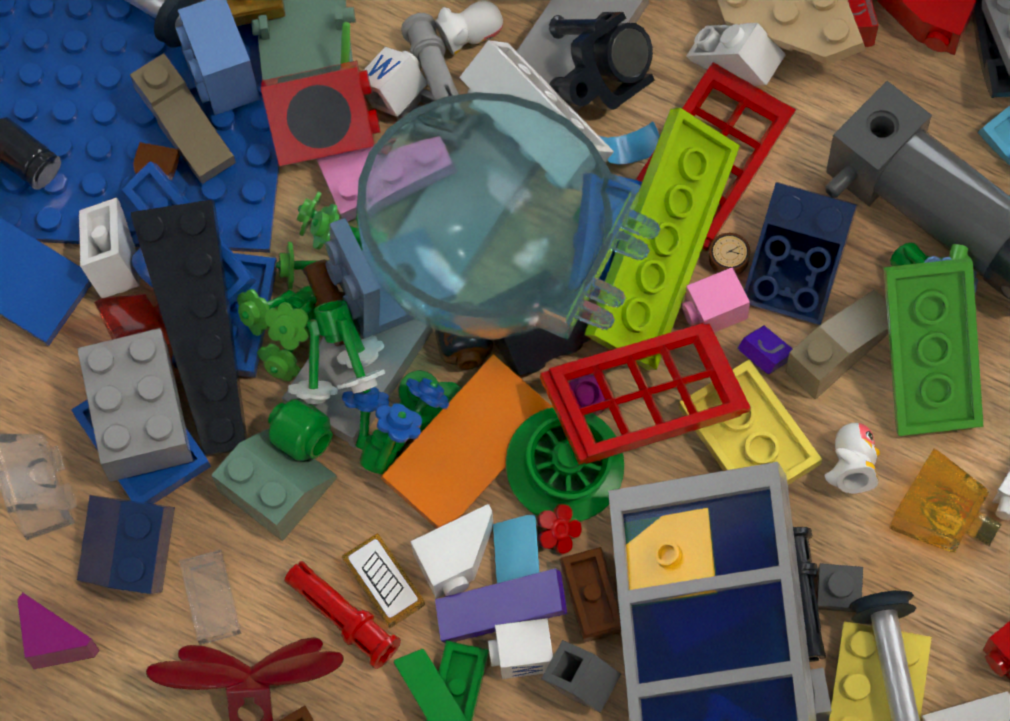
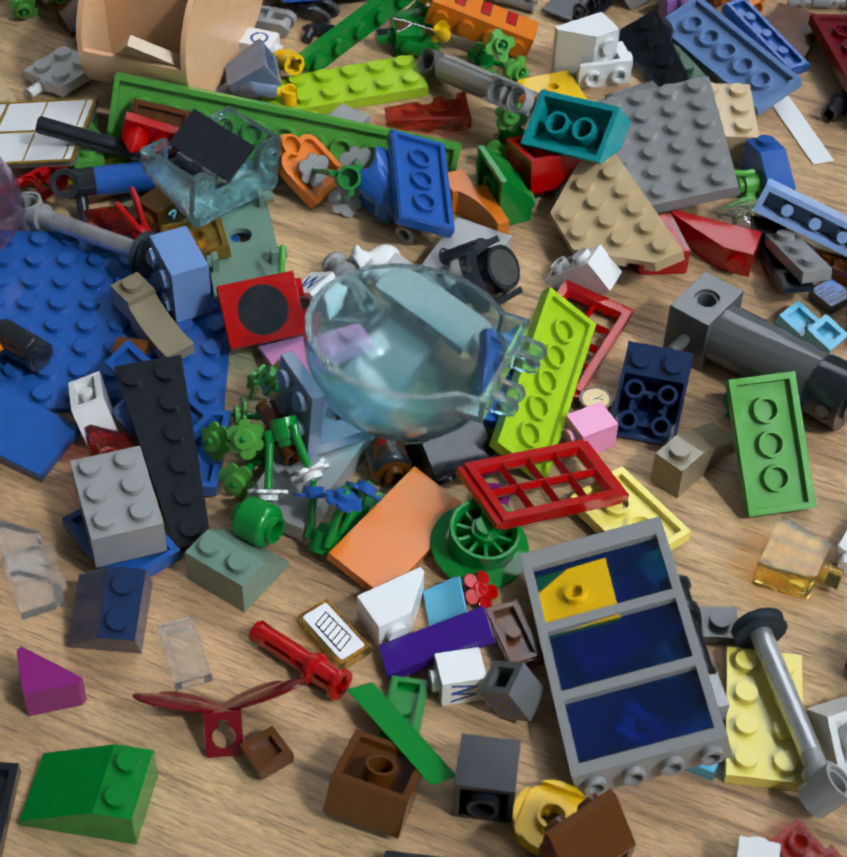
camera: 10 degrees left, 20 degrees down
(765, 349) = (633, 461): dark purple tile -> none
(856, 462) = (718, 530): white animal -> none

